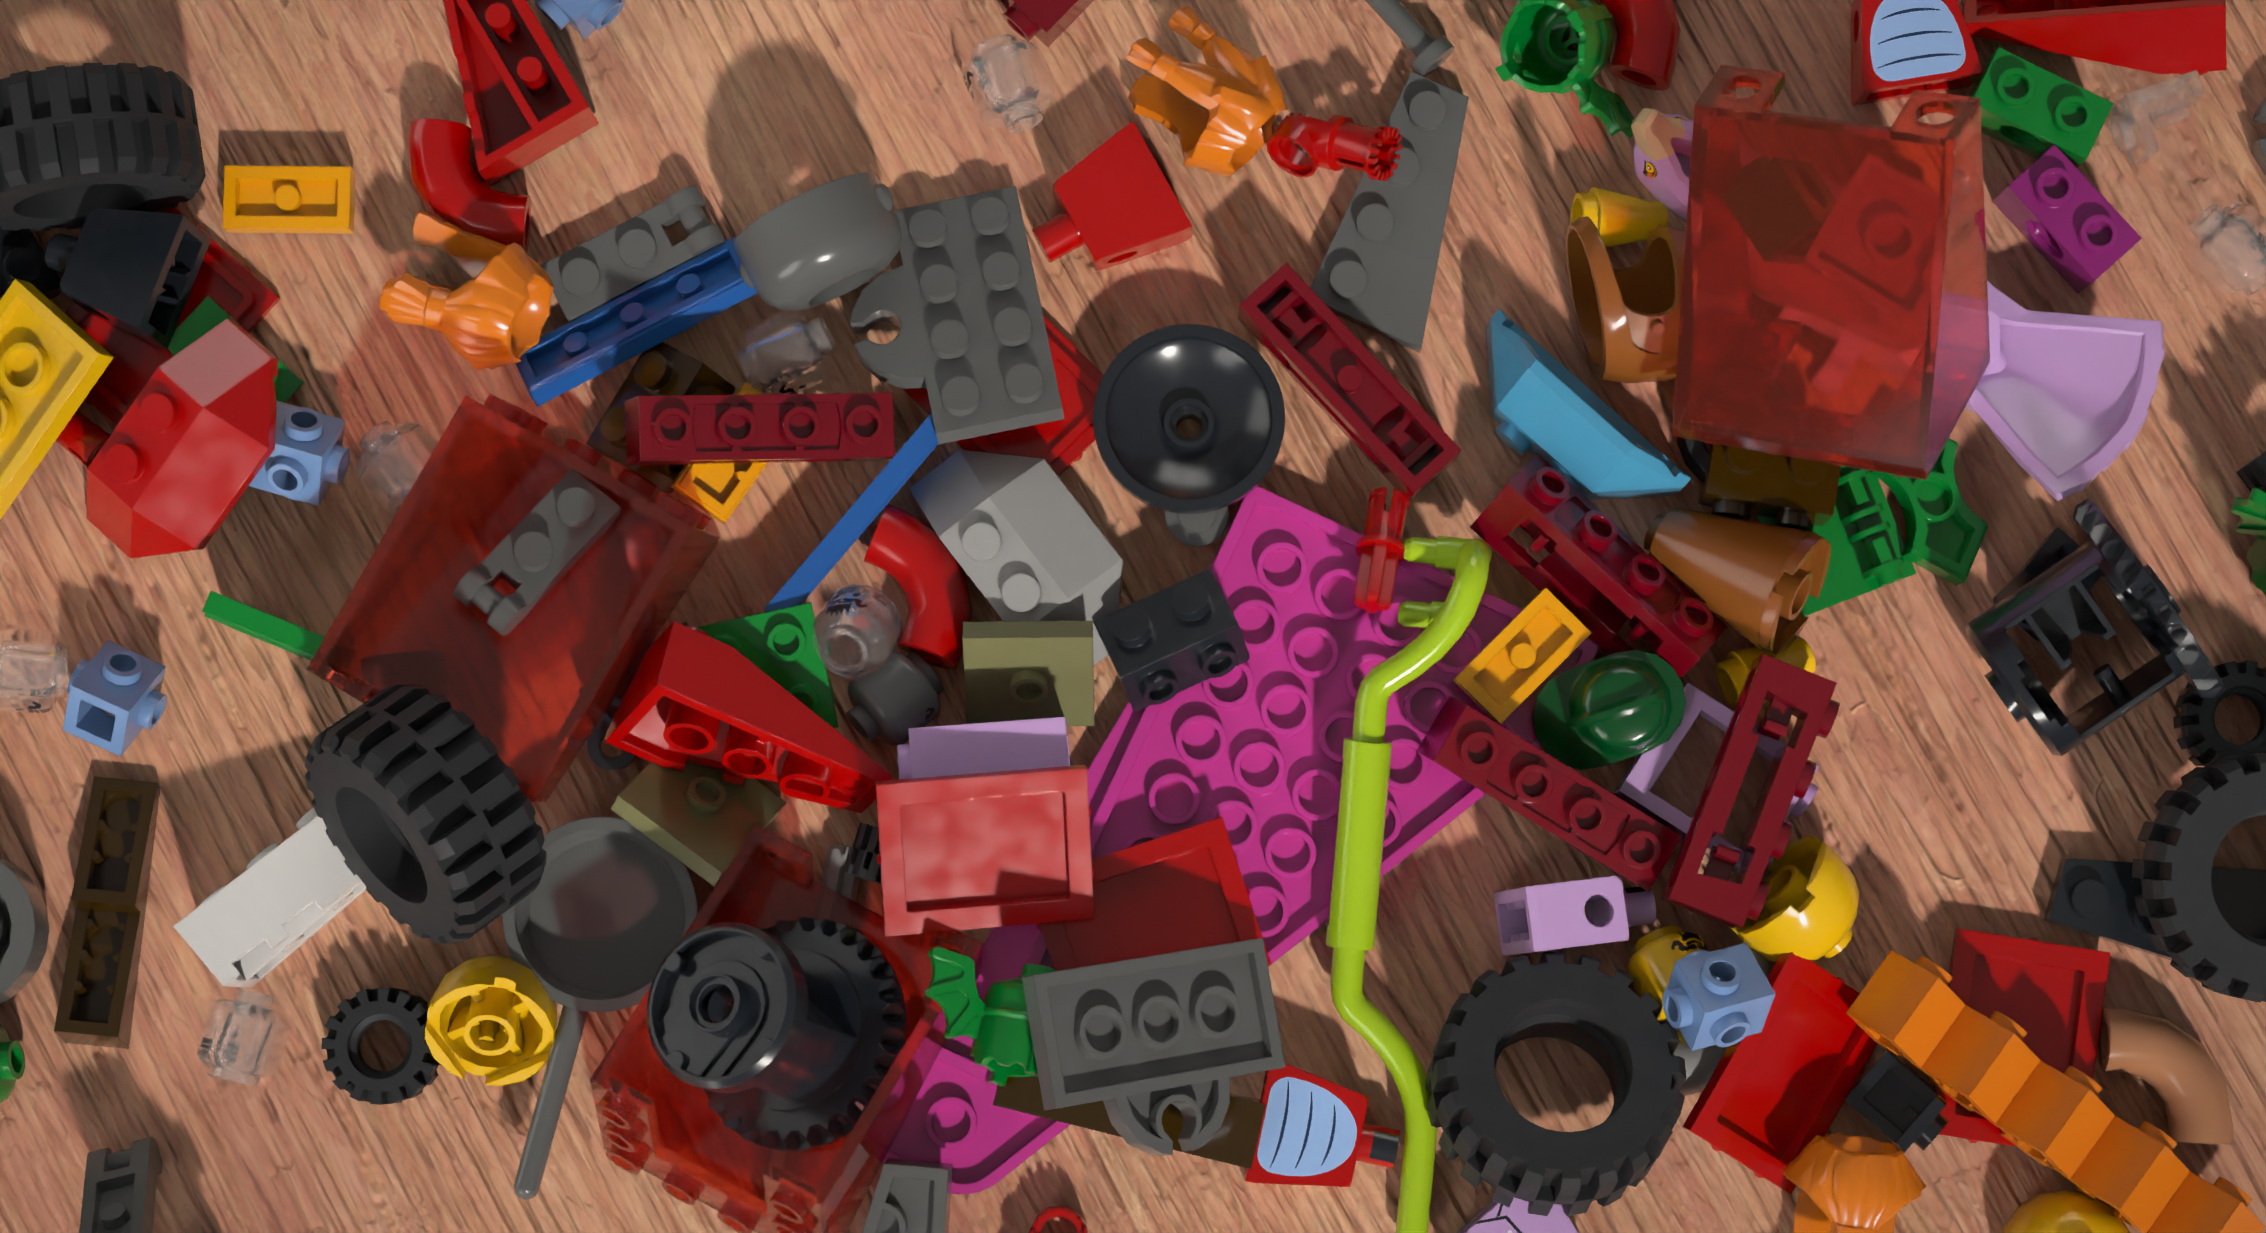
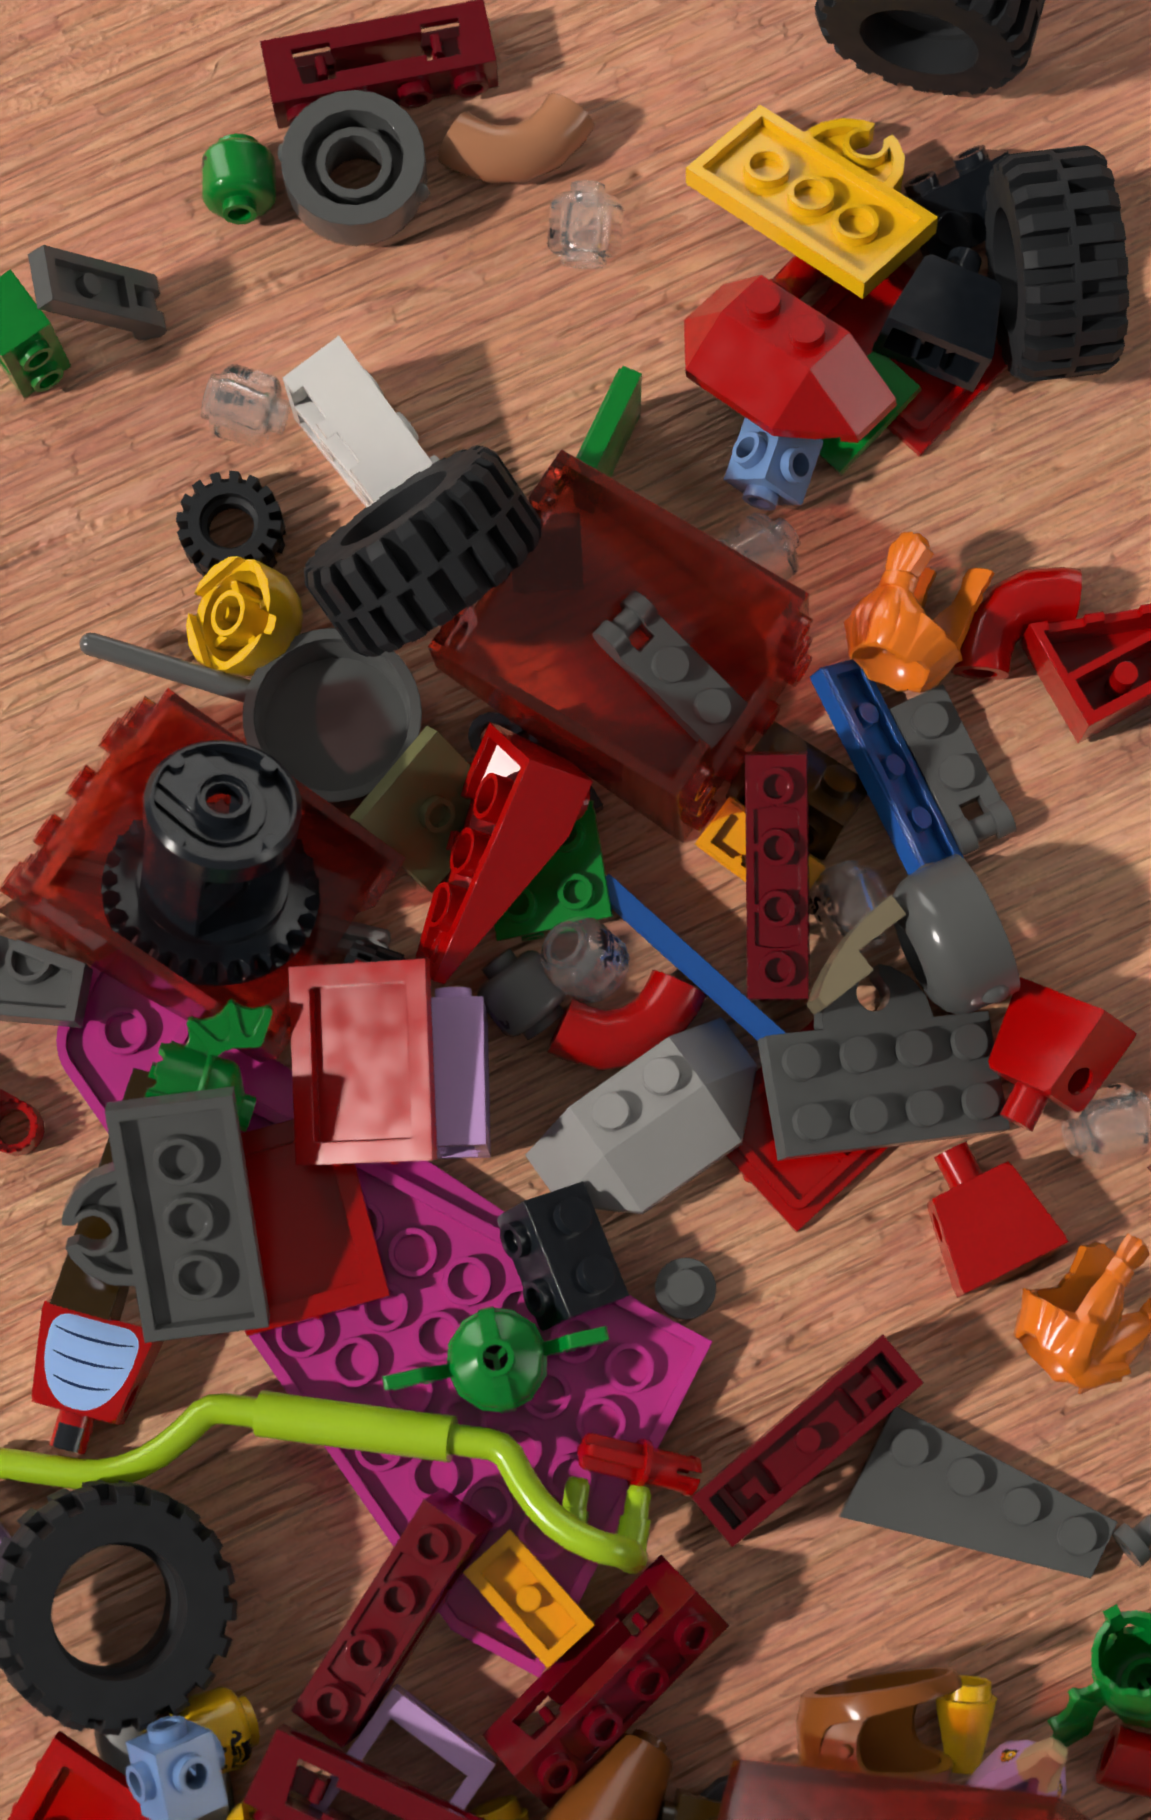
camera: 95 degrees right, 5 degrees down
(109, 914) = (362, 298): dark brown slope -> none
(114, 698) = (555, 300): medium blue brick -> none
(289, 199) = (1010, 463): light orange plate -> none
(858, 353) = (846, 963): none -> dark tan slope
(937, 139) = (1054, 1051): none -> red torso
(1029, 671) = (537, 1118): olive plate -> none
(1179, 377) = (818, 1273): black dish -> none
(1277, 724) = (500, 1388): none -> green helmet
(1334, 146) = (1045, 1412): red connector -> none
(1555, 917) = (275, 1609): lavender torso -> none
(1567, 424) = (759, 1660): dark azure wedge -> none
(1609, 709) = (472, 1683): dark green piece -> none

